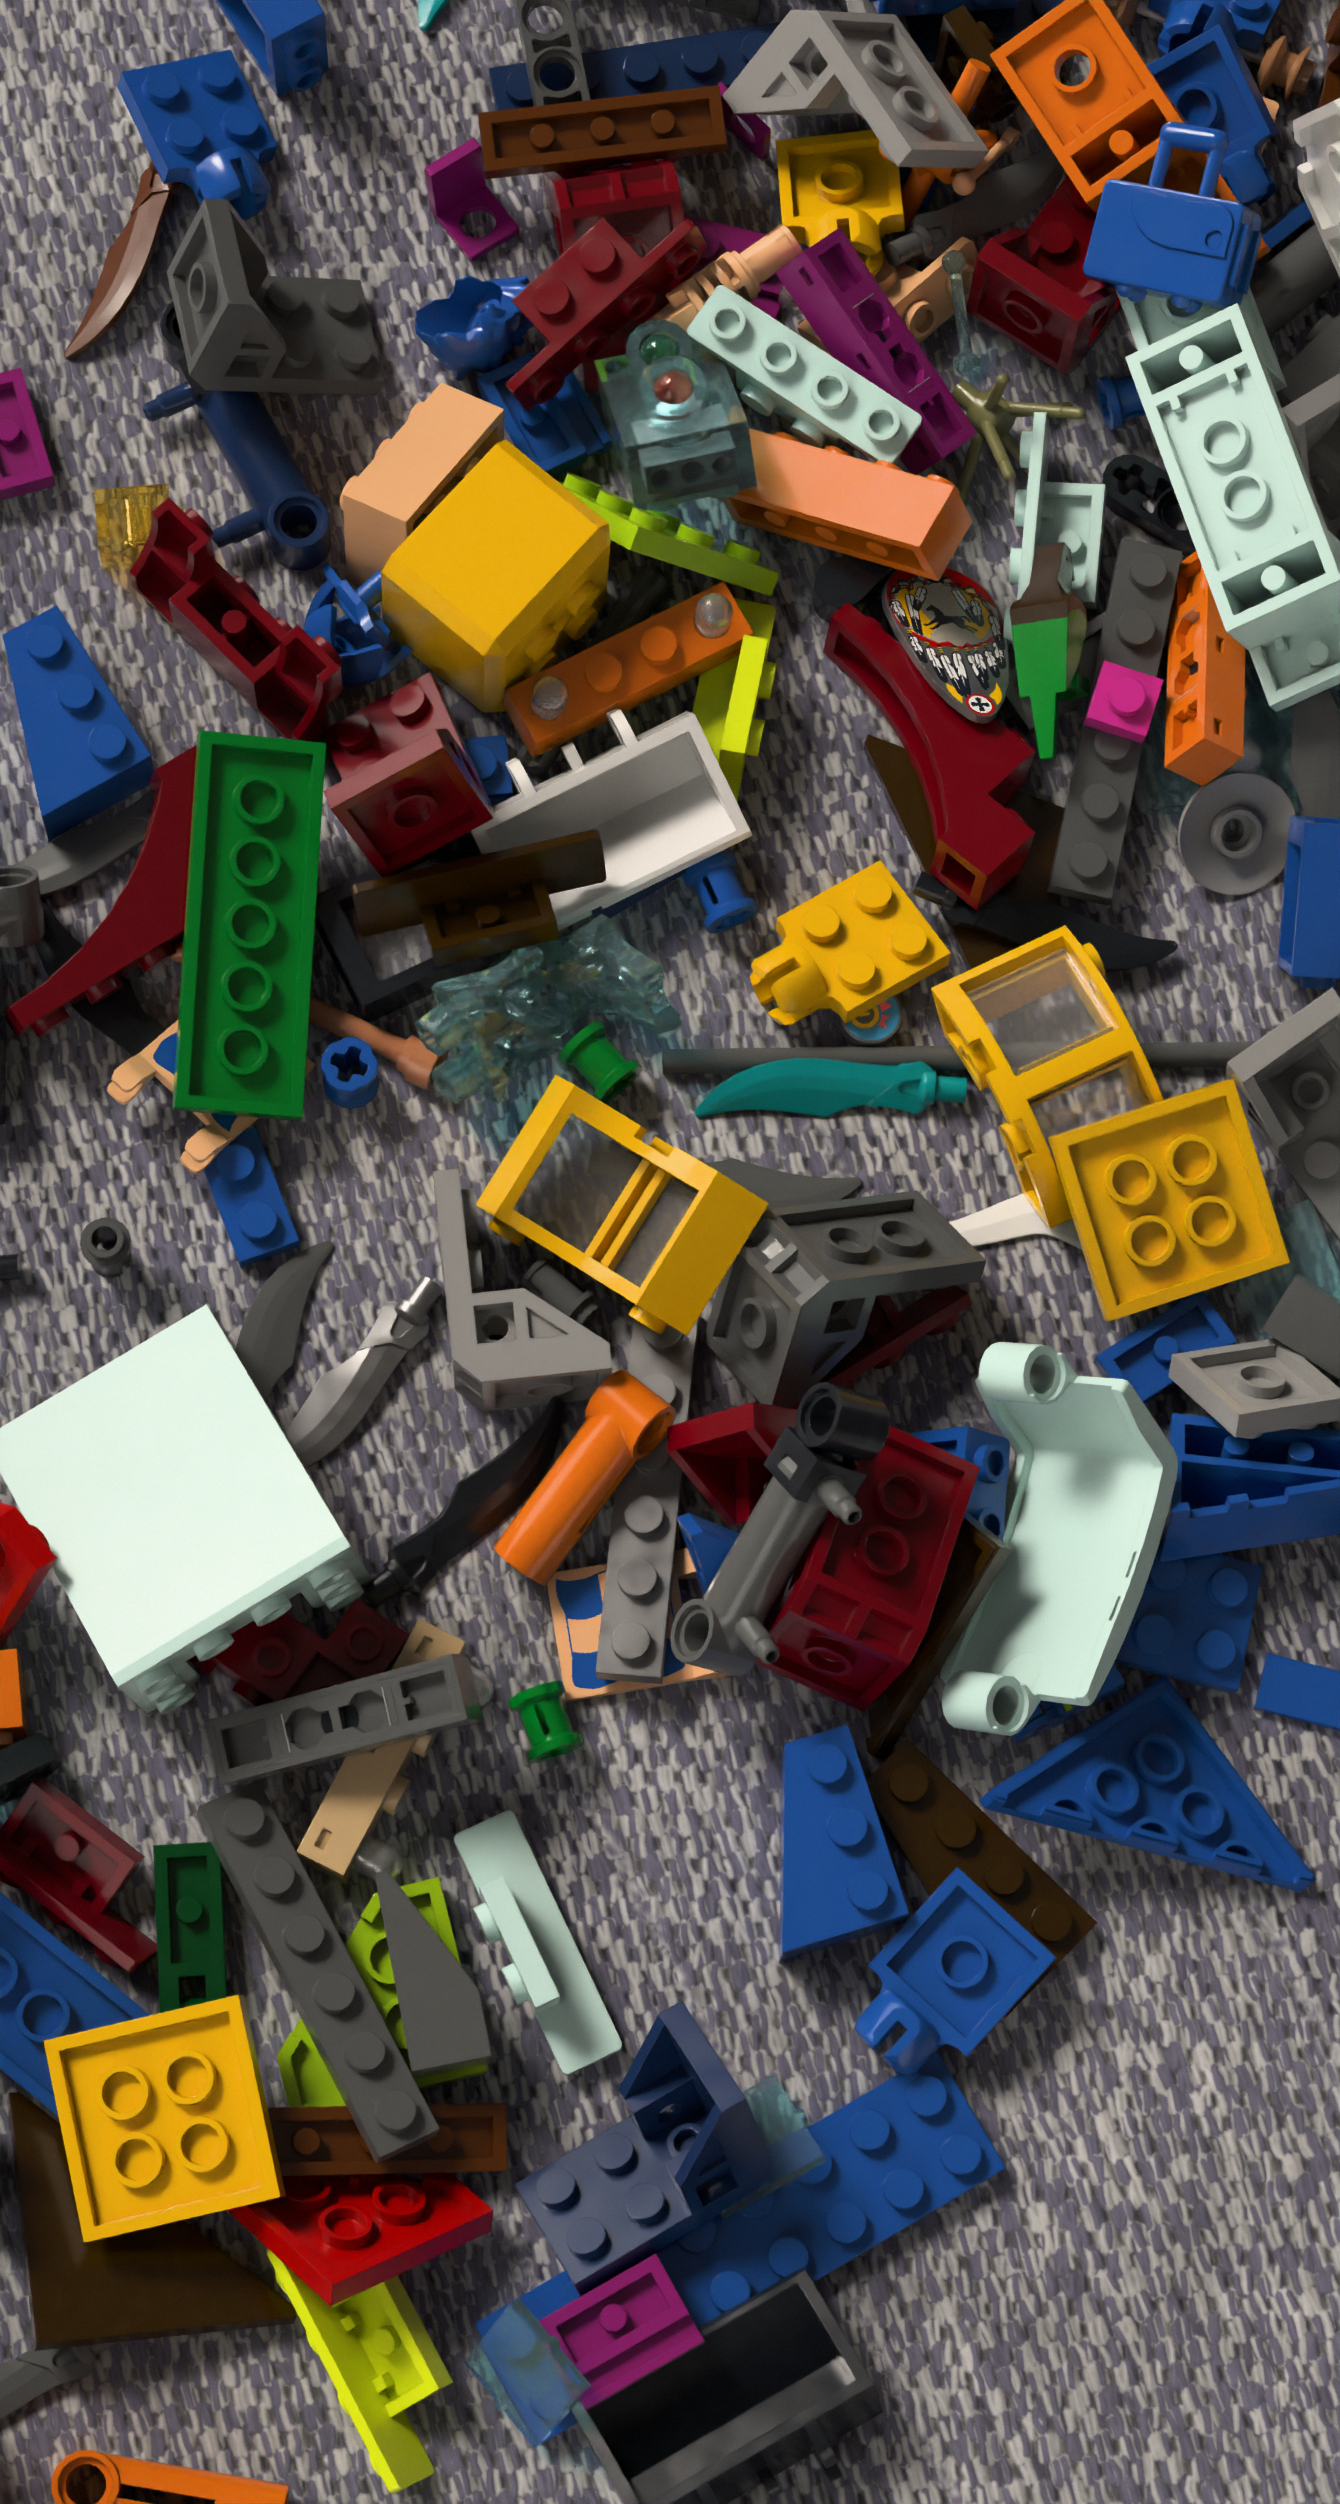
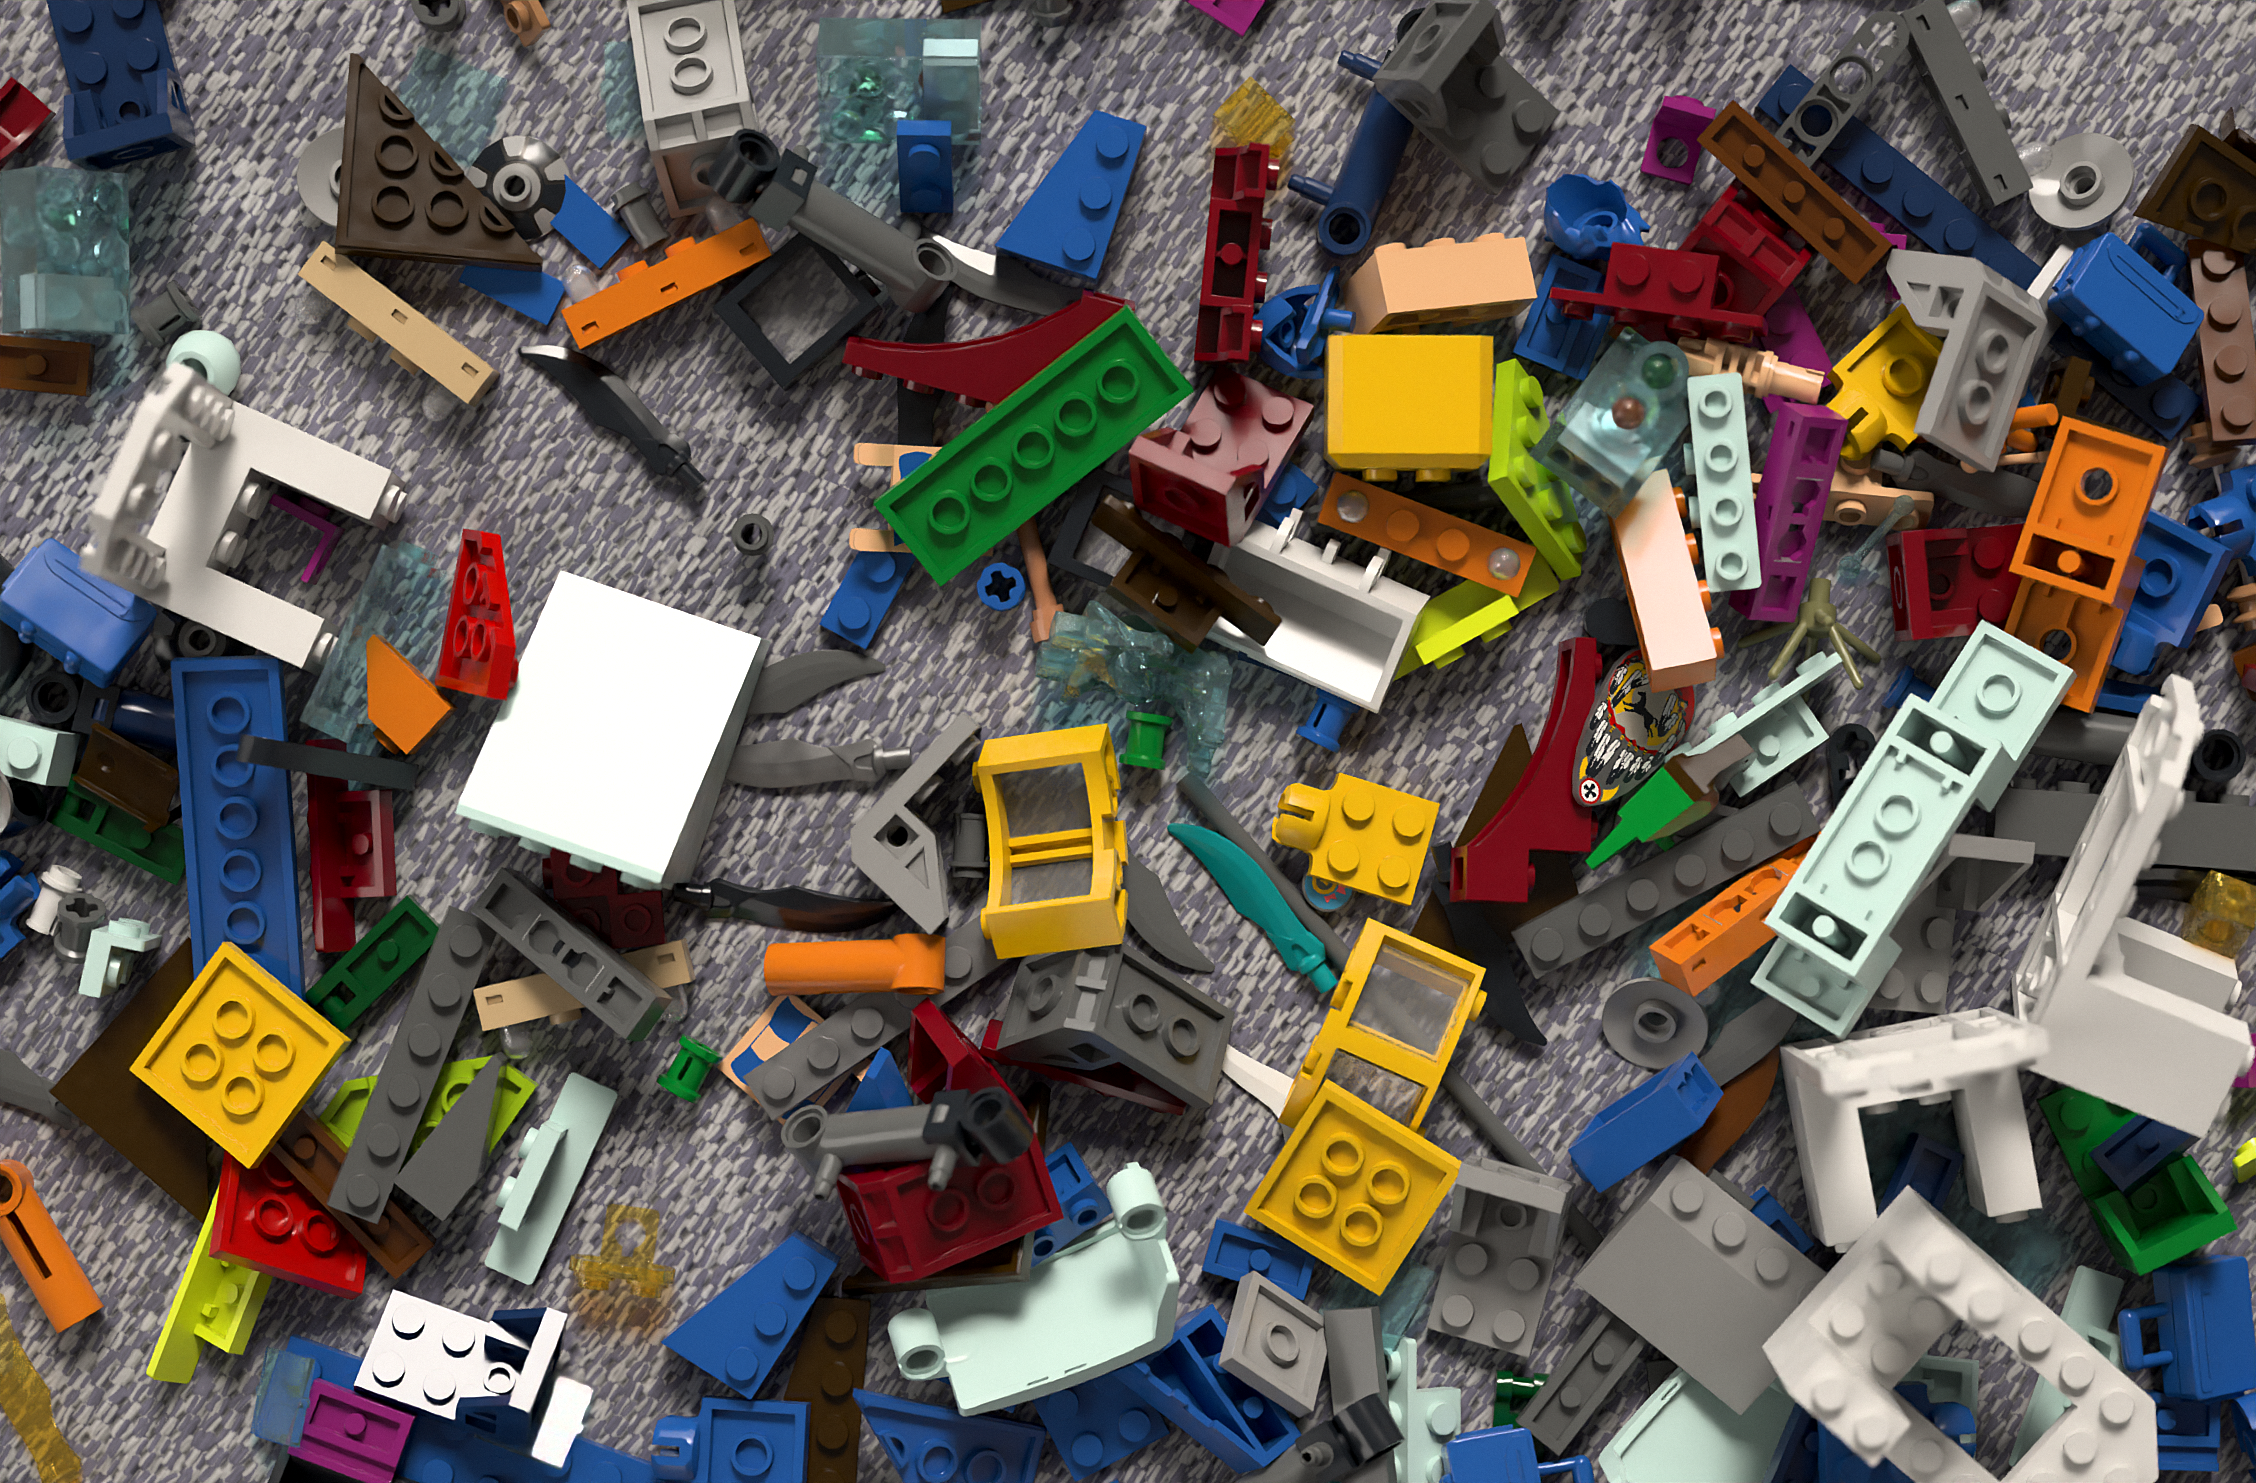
camera: 55 degrees right, 15 degrees up
(663, 1961) = (645, 1277): none -> clear yellow bracket
(1123, 702) = (1674, 881): dark pink plate -> none
(1173, 240) = (2025, 653): blue piece -> none

